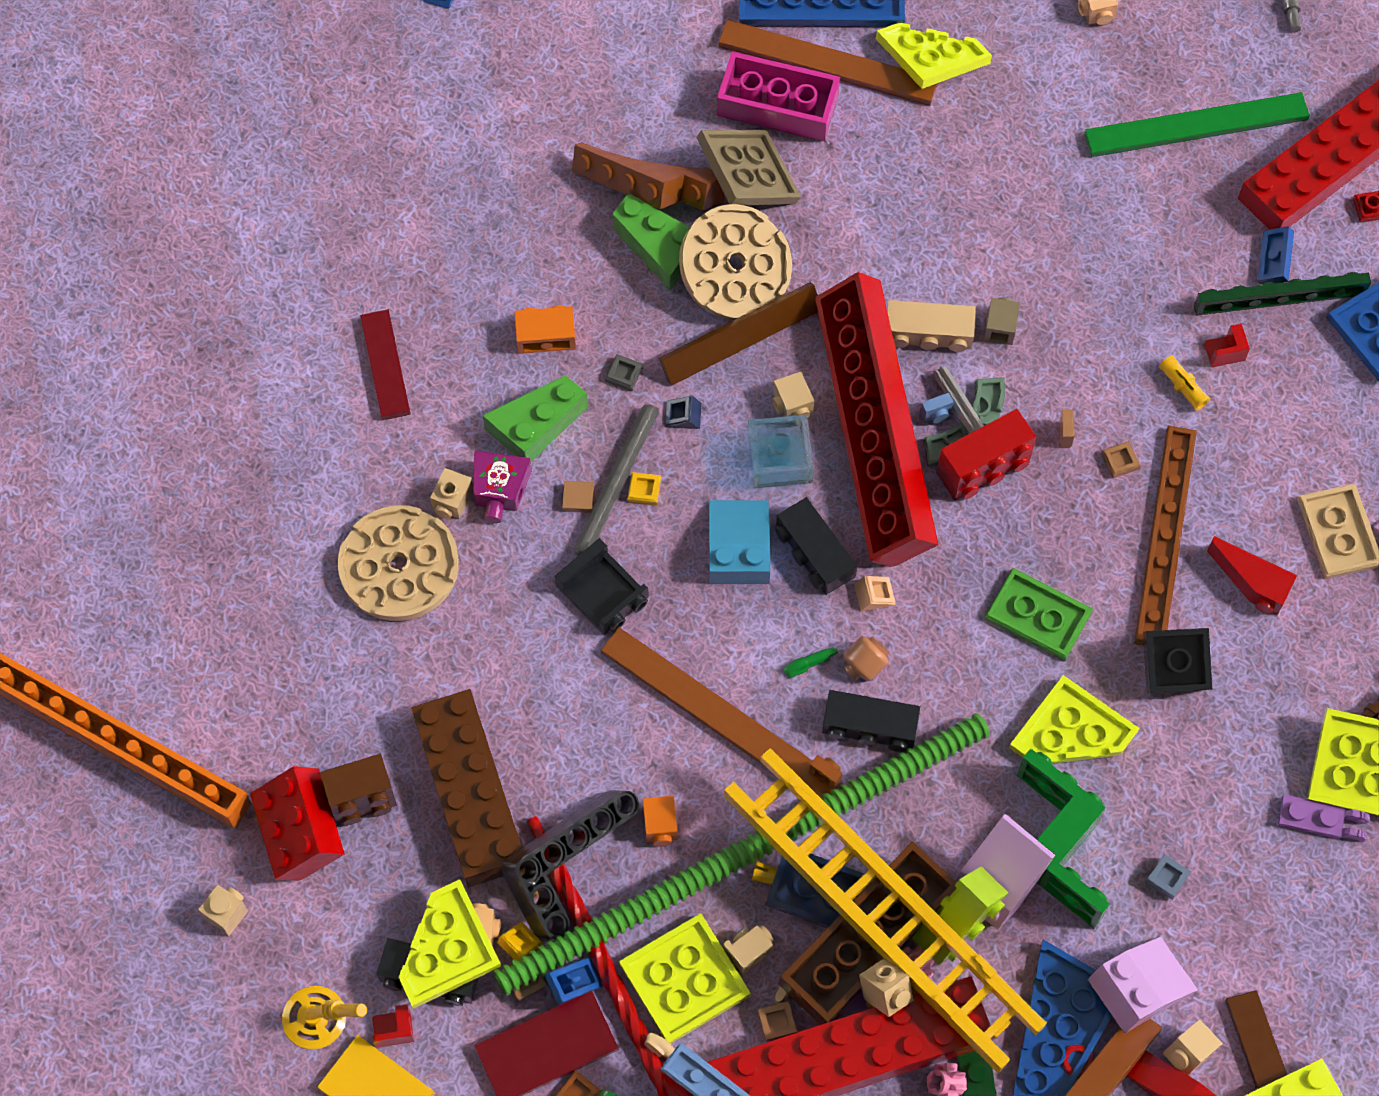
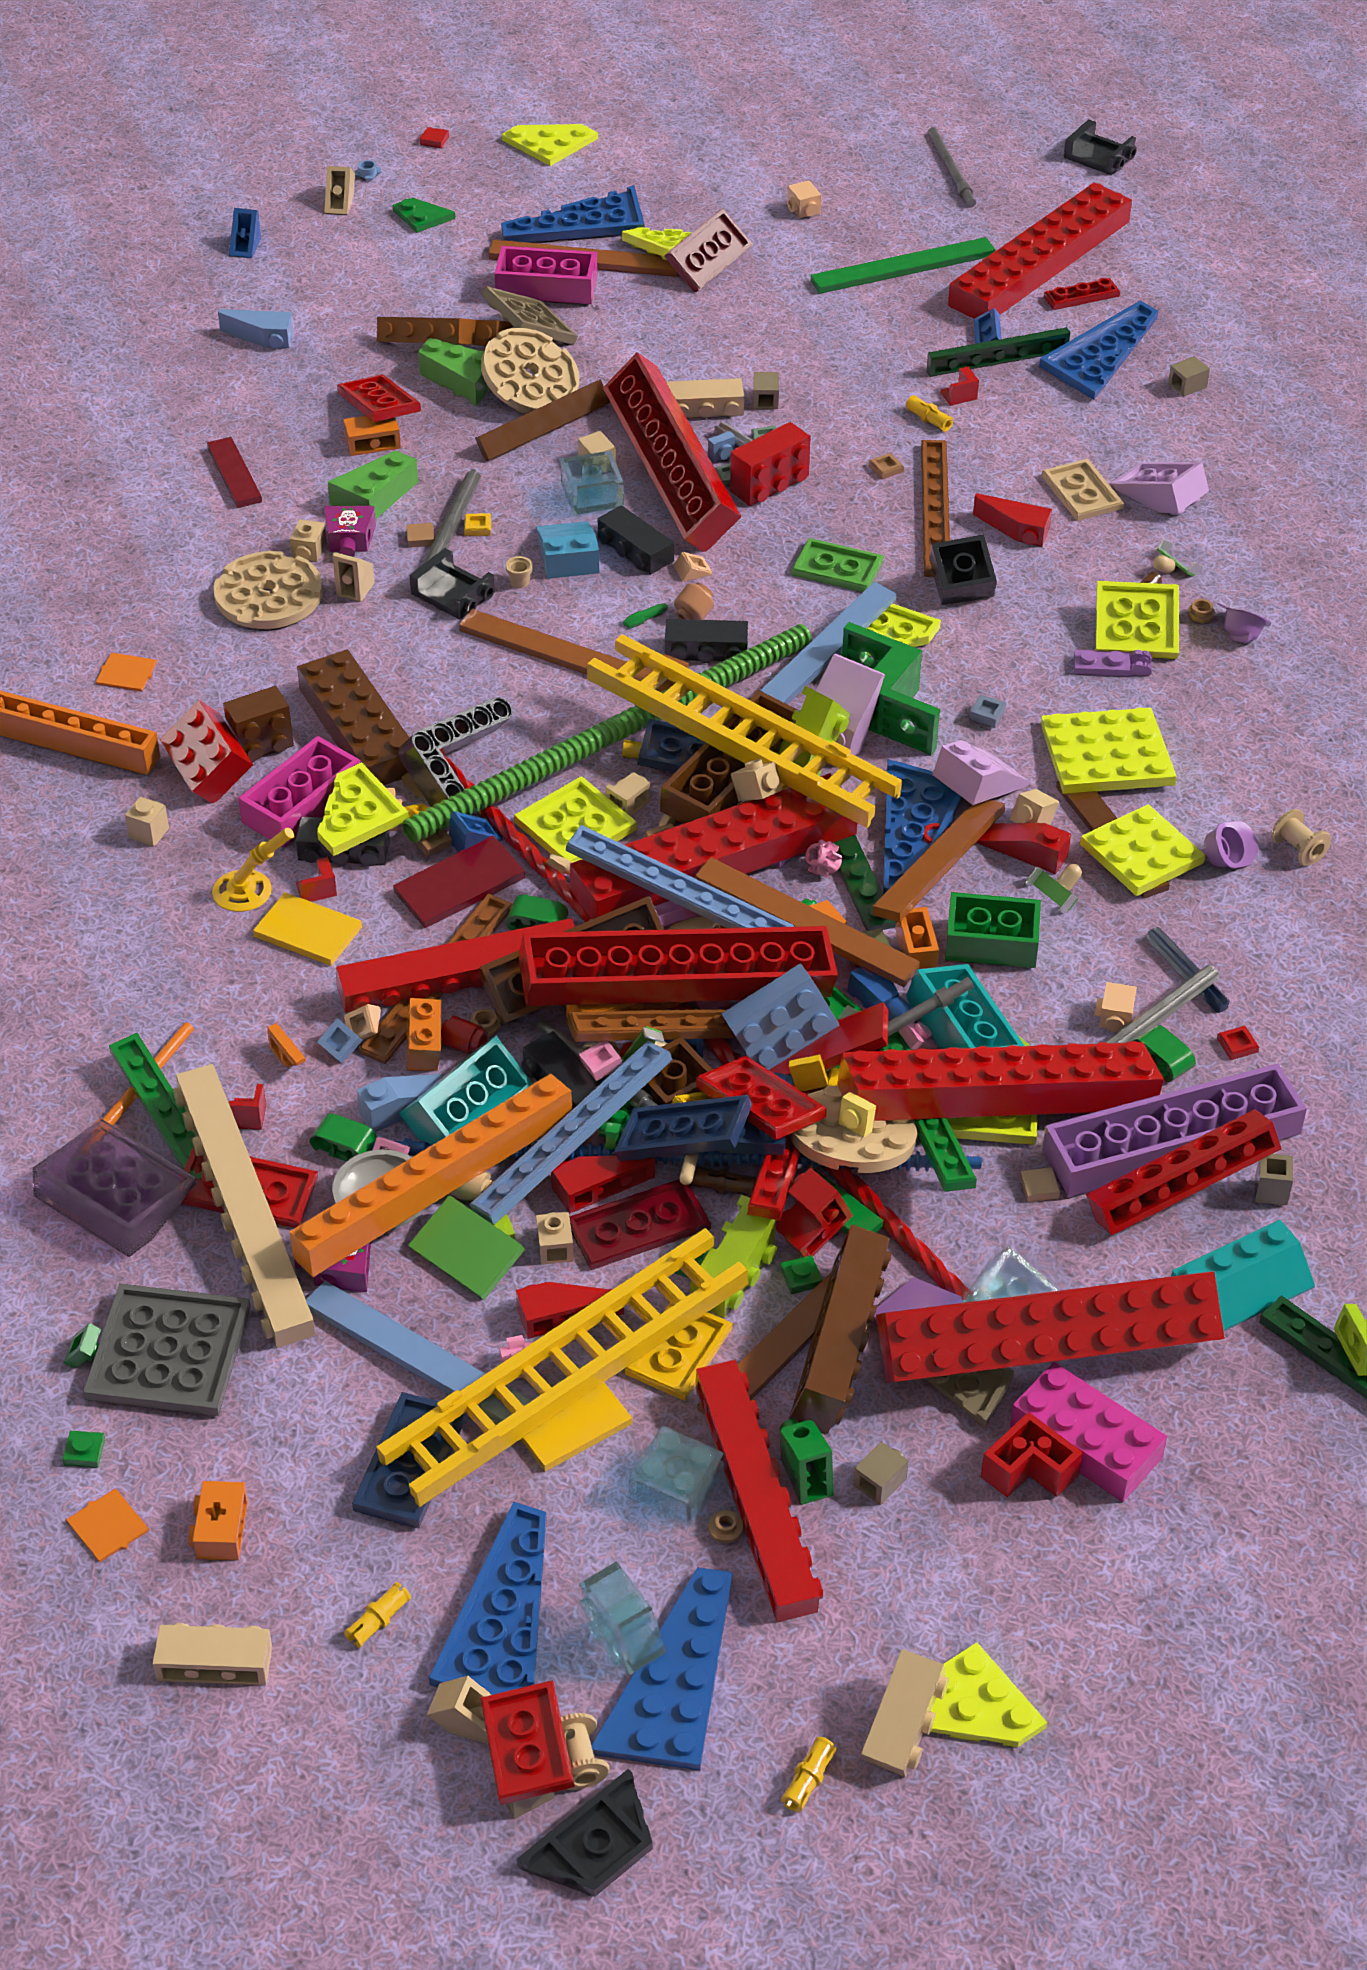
camera: 10 degrees left, 20 degrees down
(230, 664) = (126, 671): none -> orange piece
(390, 893) = (294, 789): none -> dark pink brick
(447, 137) = (259, 327): none -> medium blue slope
(493, 562) = (352, 577): none -> tan slope
(559, 278) = (378, 398): none -> red tile
(624, 372) = (446, 456): dark grey tile -> none
(660, 820) = (533, 722): orange brick -> none
(678, 569) = (519, 571): none -> tan piece
(683, 413) = (503, 475): dark blue slope -> none
(972, 78) = (708, 250): none -> tile
(993, 764) = (818, 653): none -> medium blue tile
(1066, 428) = (835, 448): medium nougat tile -> none
(1293, 959) = (1107, 750): none -> neon yellow plate

